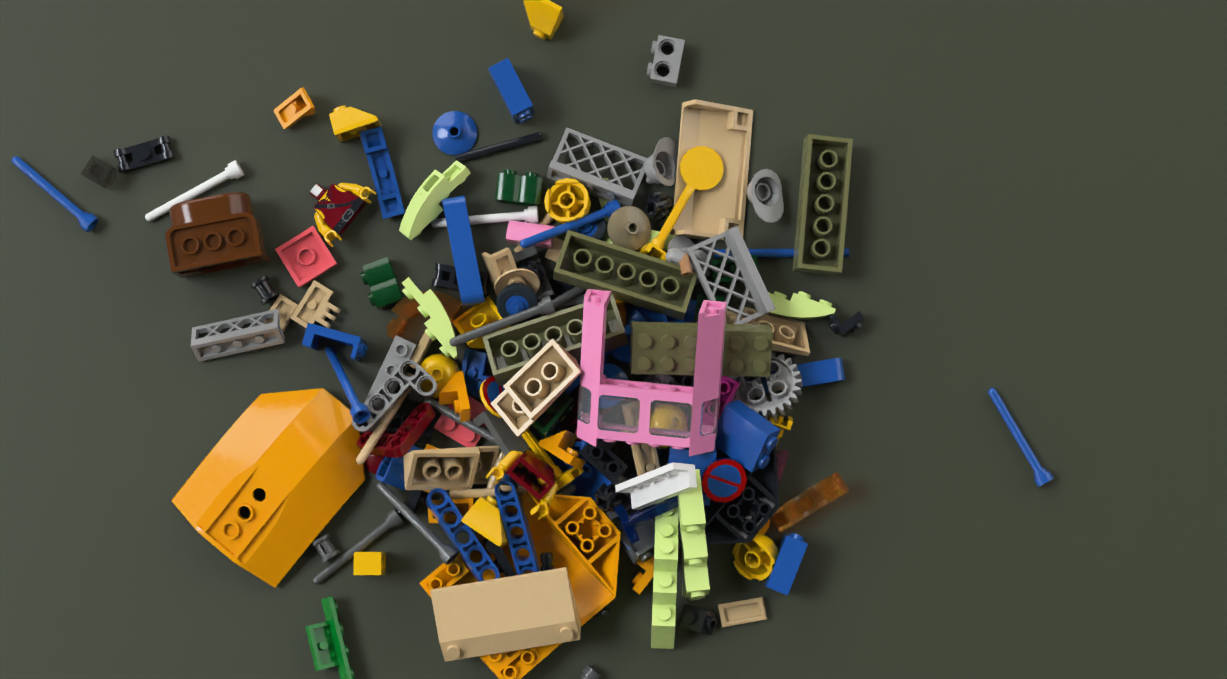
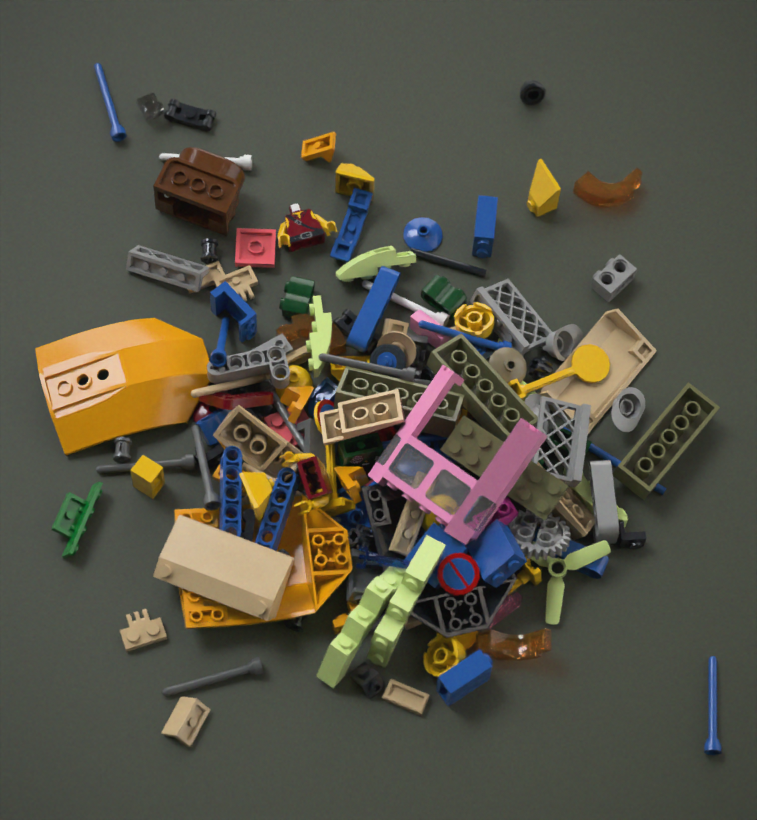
camera: 25 degrees right, 20 degrees down
(659, 484) = (410, 540): white fence -> none
(682, 258) = (533, 402): arm -> none
(803, 307) = (604, 502): none -> light grey beam
(810, 416) = (572, 562): none -> yellowish green piece

